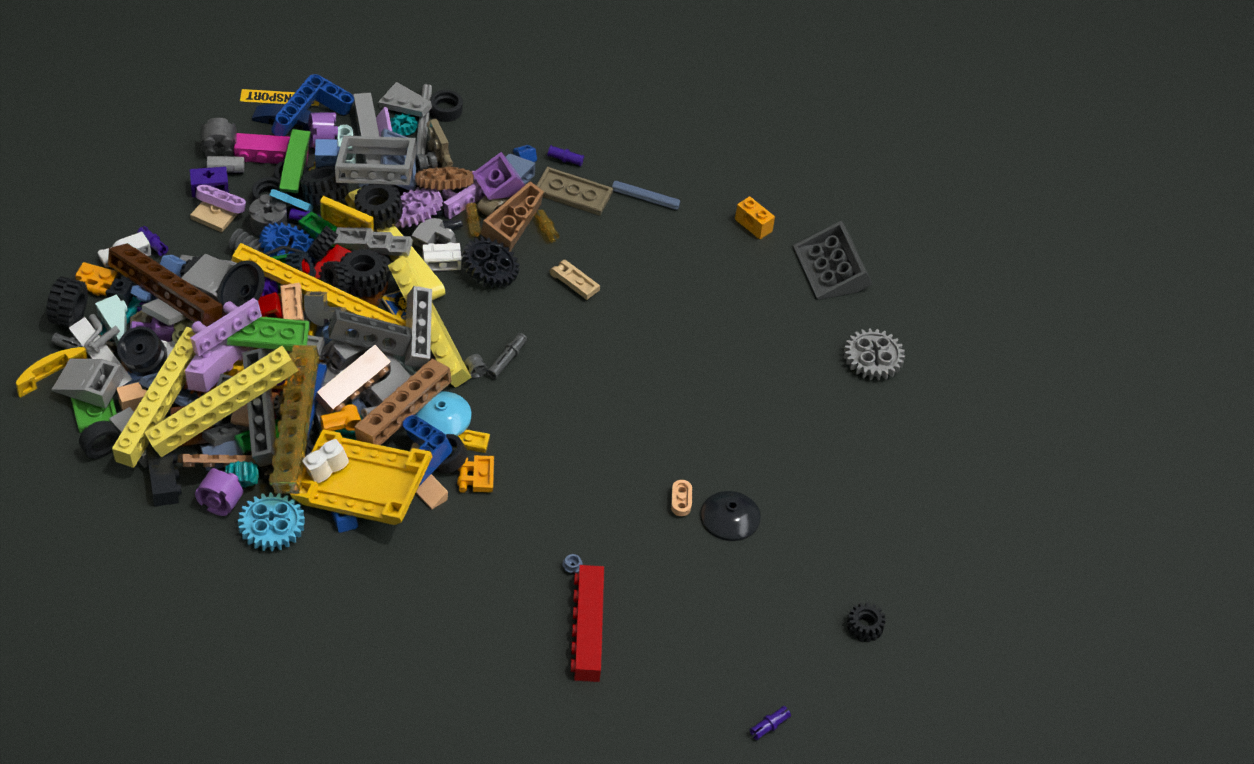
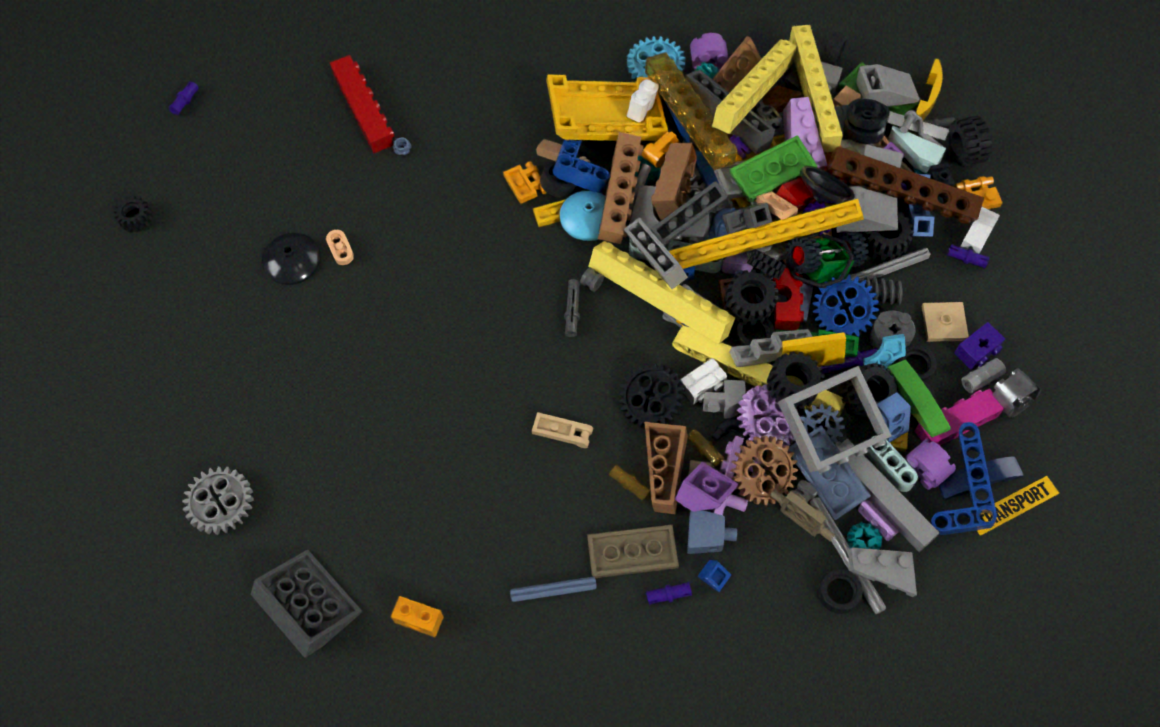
camera: 160 degrees right, 15 degrees up
(220, 198) = (963, 319): lavender beam -> none
(226, 326) = (802, 149): lavender plate -> none
(322, 243) = (813, 312): black tyre -> none

